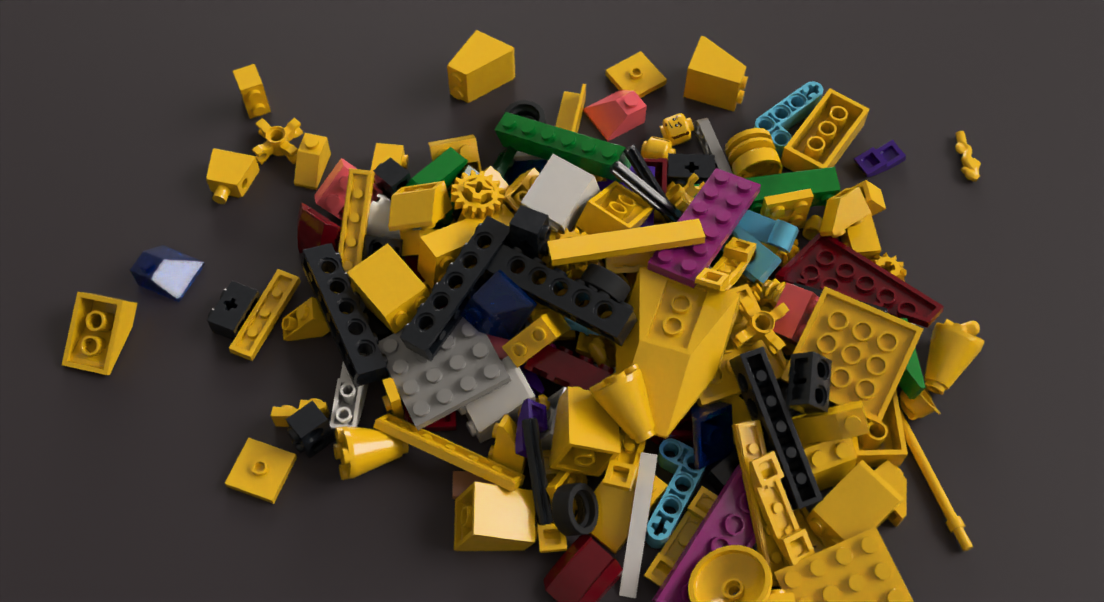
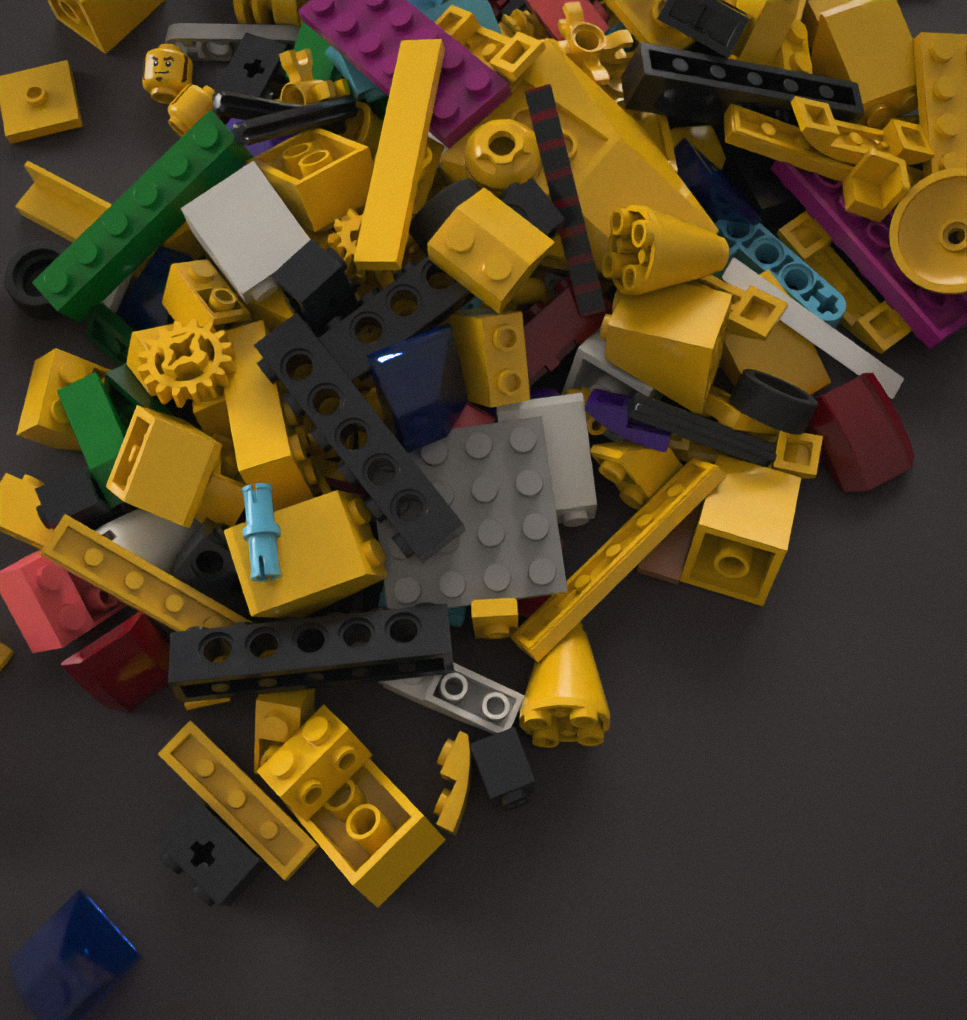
camera: 65 degrees left, 10 degrees up
(261, 470) = (534, 878): yellow plate -> none
(267, 375) = (373, 833): none -> yellow slope
(290, 339) = (314, 763): none -> yellow brick
(388, 258) = (261, 532): none -> medium azure pin
(578, 302) = (488, 248): none -> yellow slope
(617, 113) = (94, 143): coral slope -> none
(639, 338) = (565, 199): none -> black sticker
(654, 306) = (497, 171): none -> yellow piece
(748, 529) = (875, 185): none -> yellow panel

